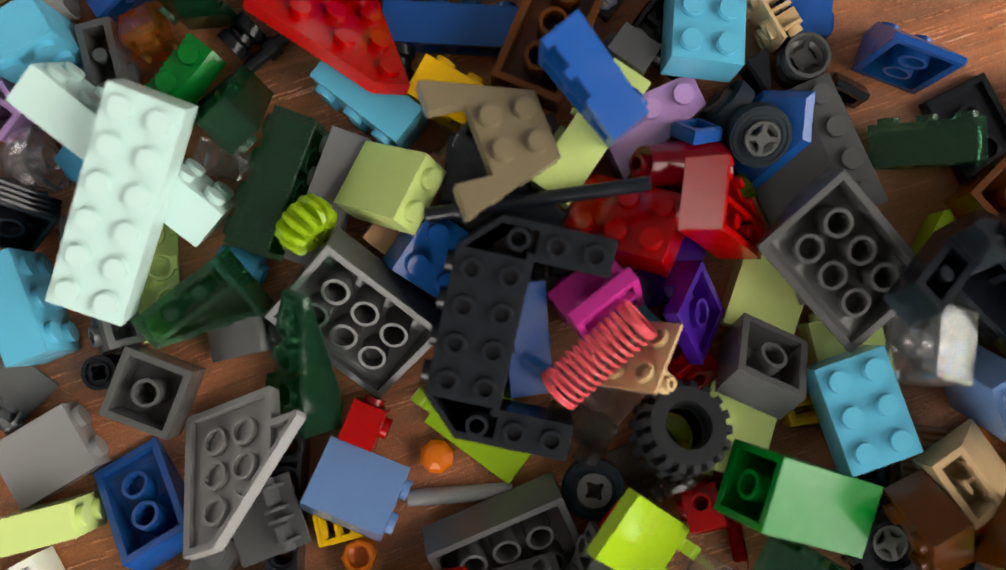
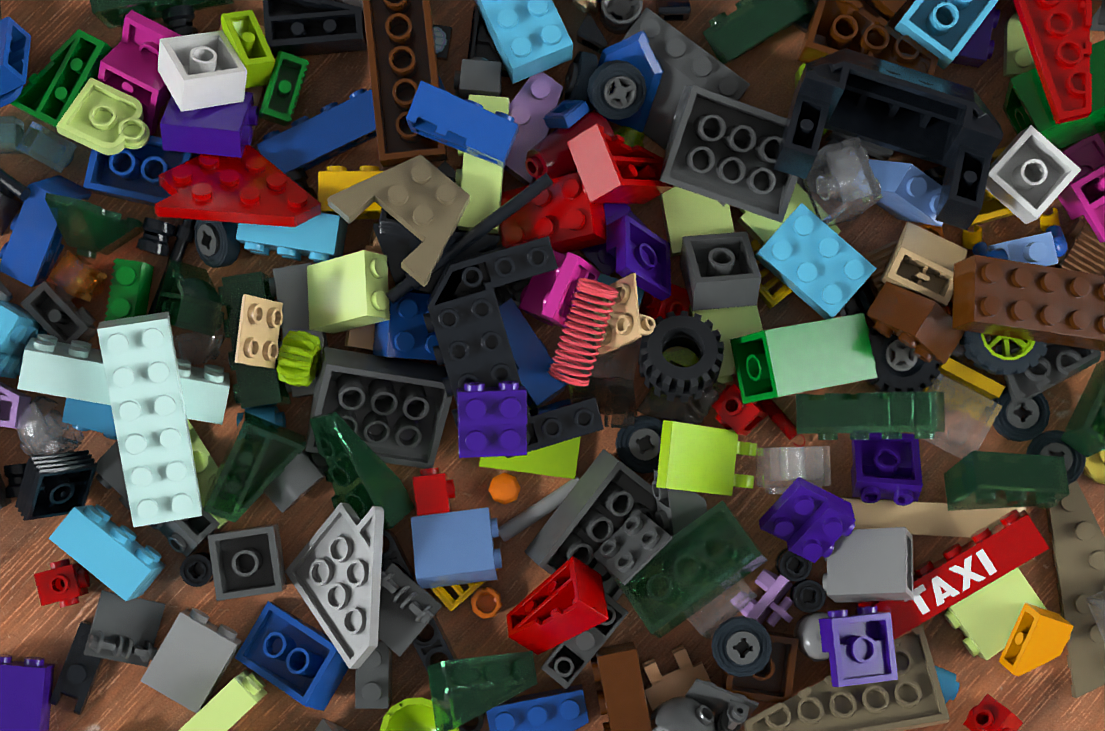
camera: 30 degrees left, 0 degrees up
(275, 175) = (258, 332): none -> tan hinge
(293, 71) = (216, 242): none -> black wheel
(458, 394) = (492, 420): none -> dark purple plate

